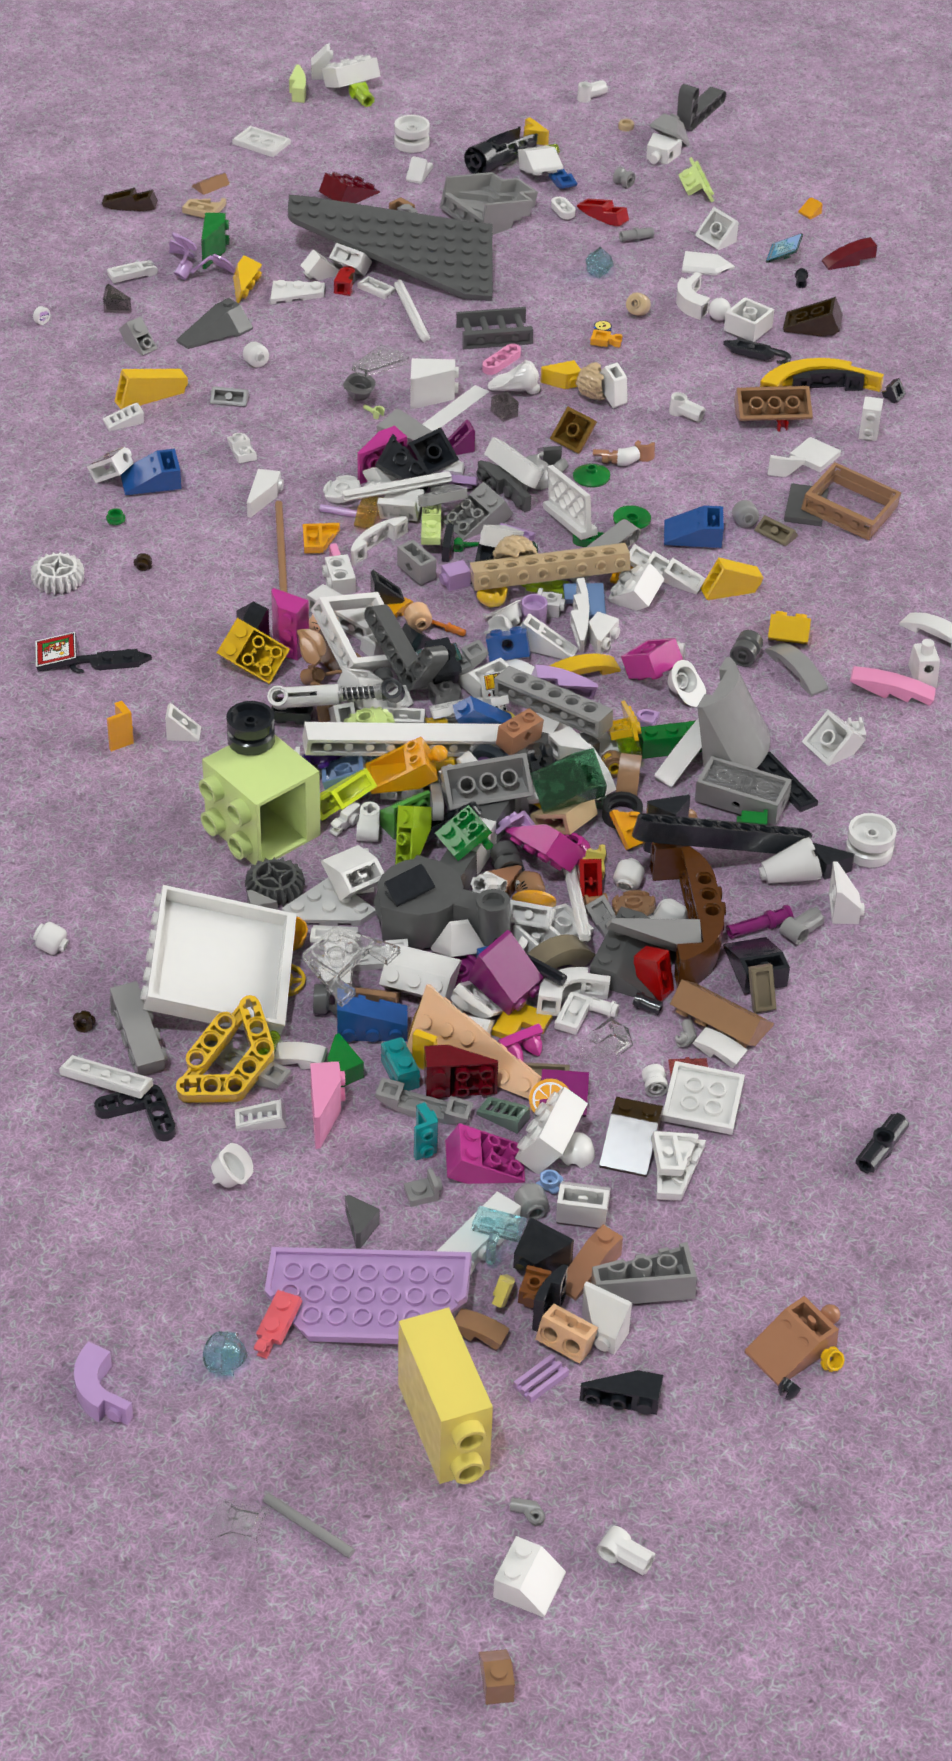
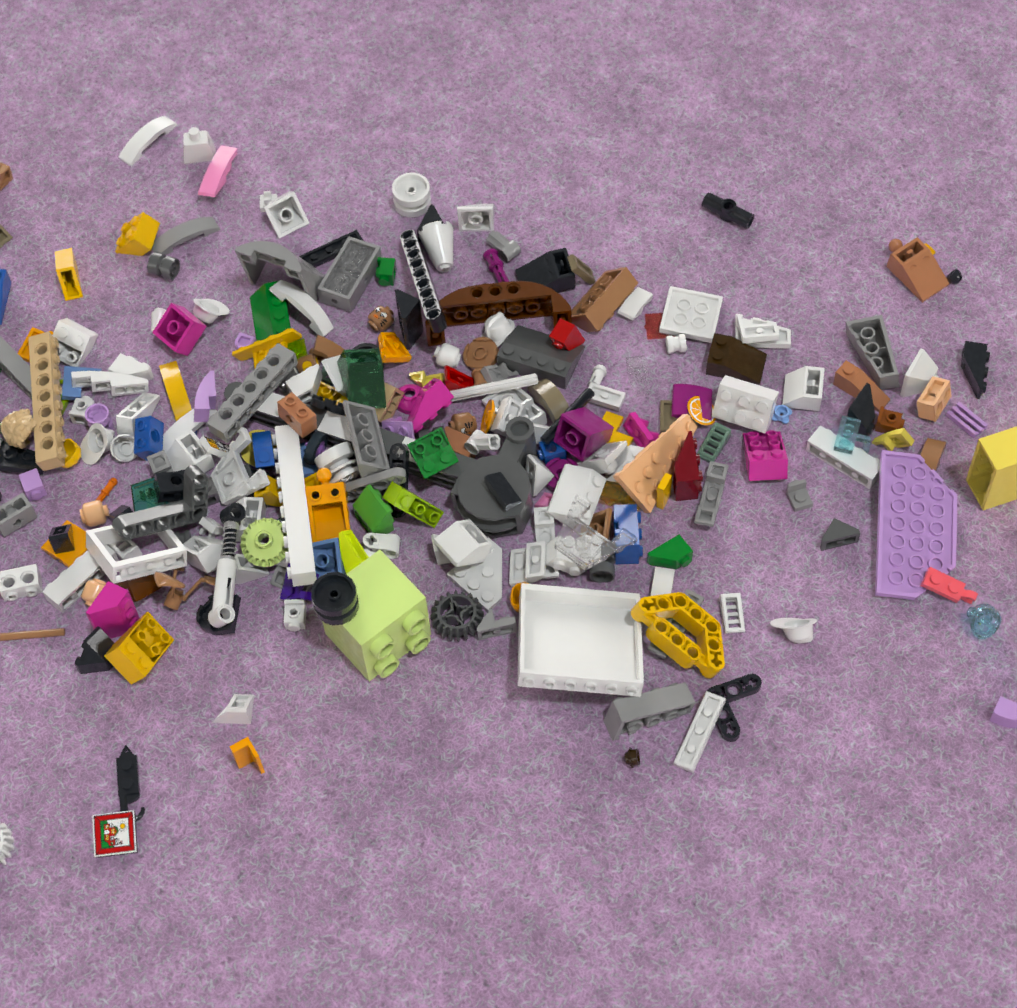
camera: 85 degrees left, 15 degrees up
(51, 938) = (532, 793): white head -> none
(326, 1097) = (725, 560): bright pink slope -> none
(400, 1063) = (673, 512): teal brick -> none
(425, 1132) = (752, 487): teal bracket -> none
(532, 1200) = (805, 424): light grey head -> none
(550, 1292) = (912, 408): black slope -> none
(578, 981) = (597, 404): white arch -> none
(647, 1003) = (590, 350): black pin -> none
(659, 932) = (532, 323): light grey wedge -> none
(672, 571) = (47, 318): white slope -> none
(688, 1034) = (622, 323): light grey arm -> none

